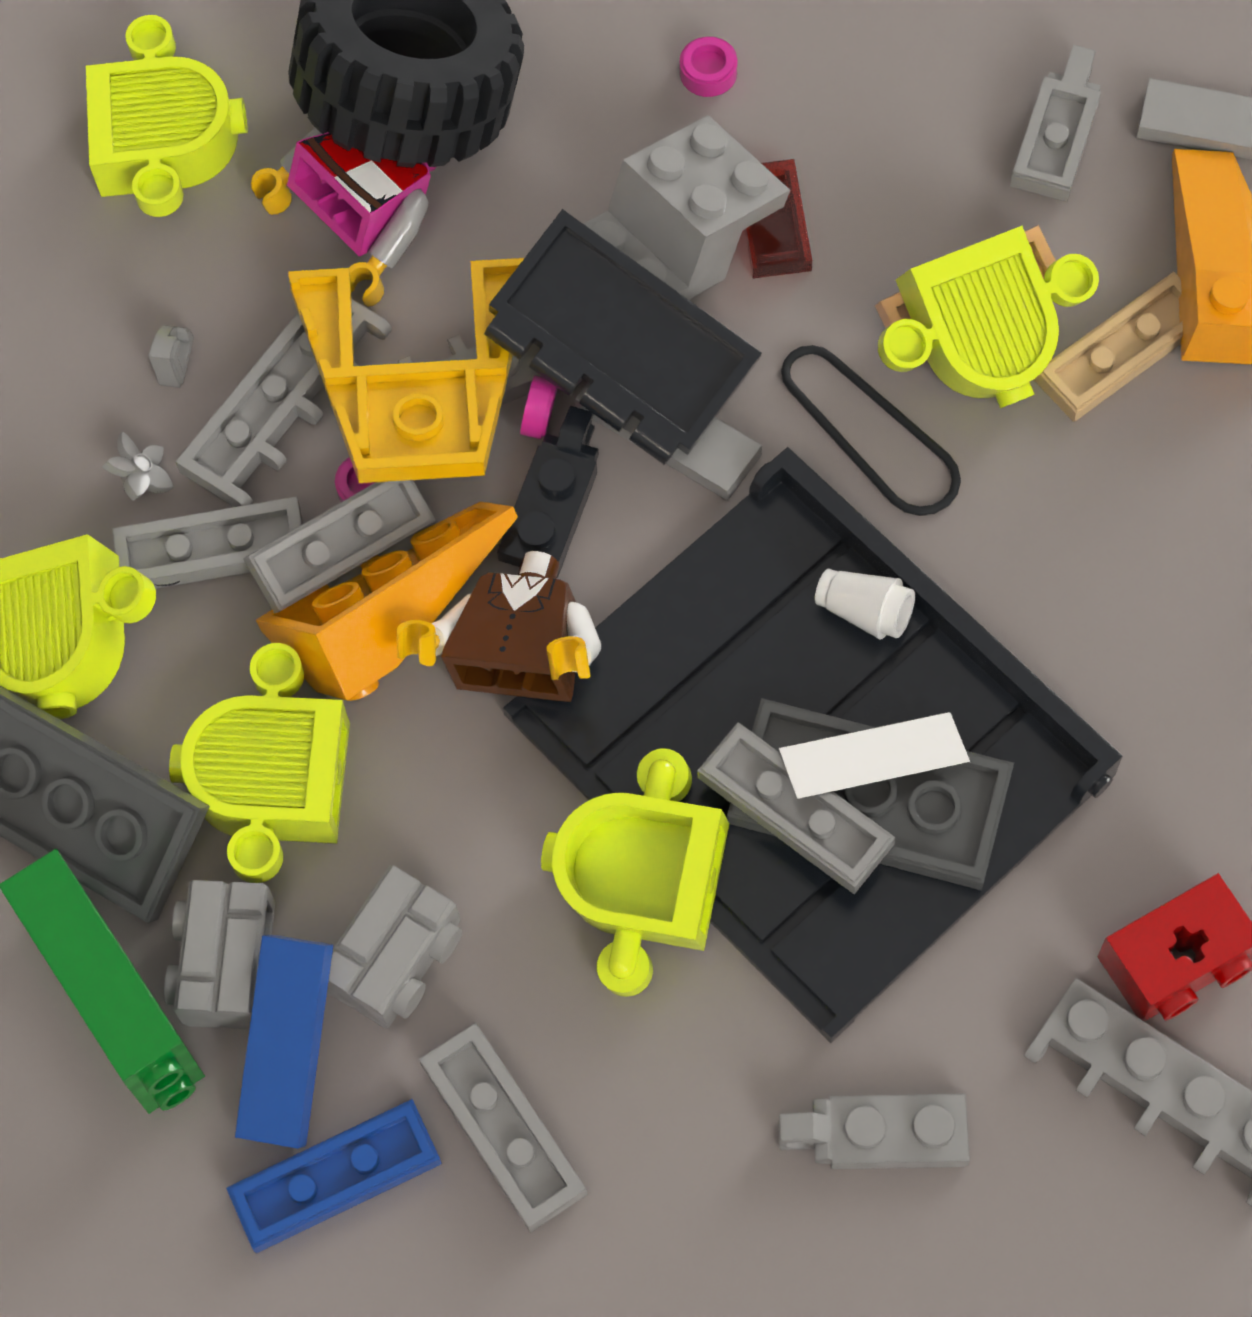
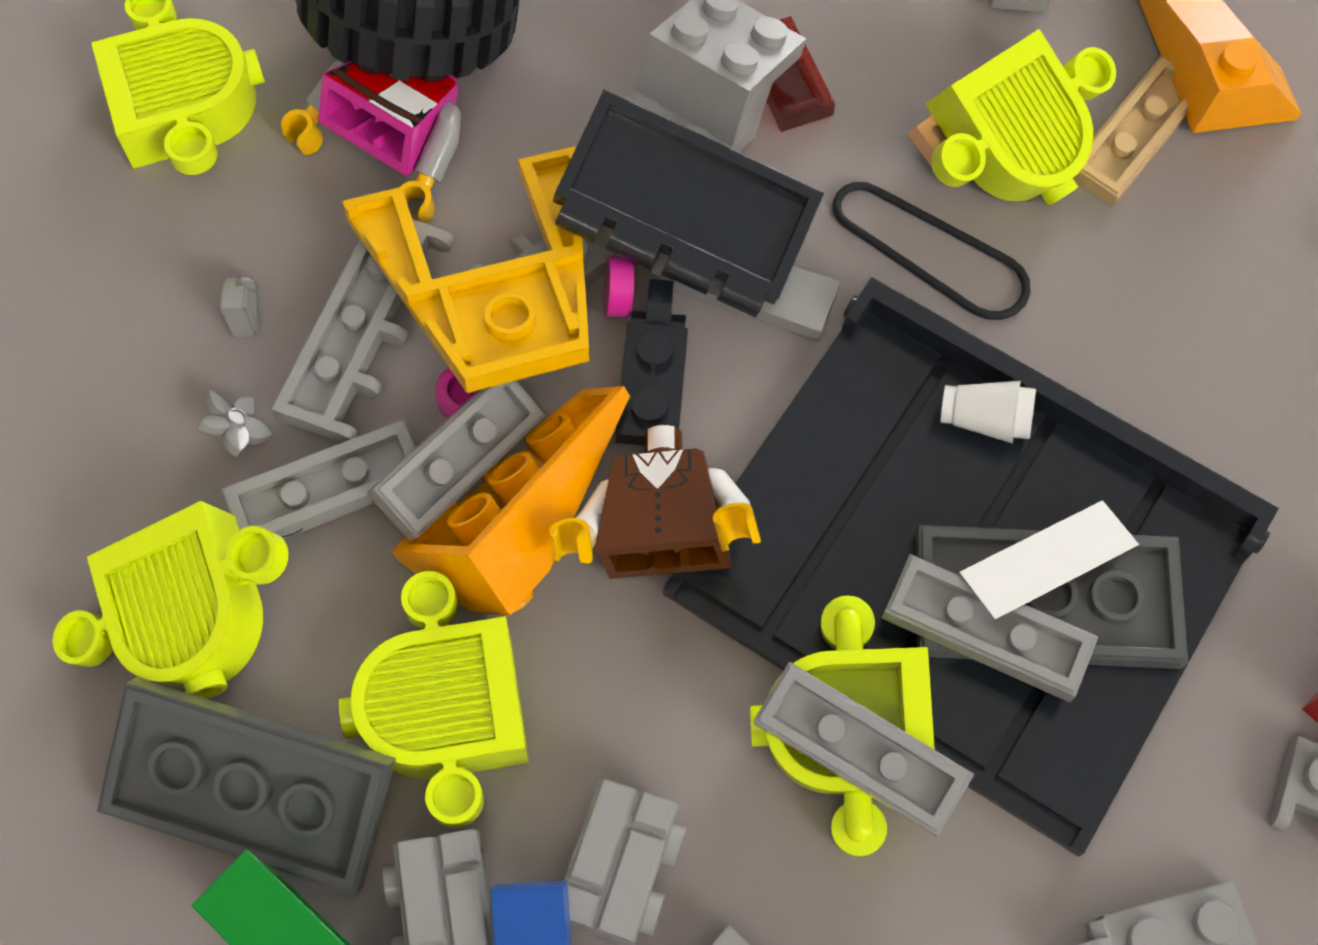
camera: 20 degrees left, 0 degrees up
(634, 888) = (863, 749): none -> light grey tile

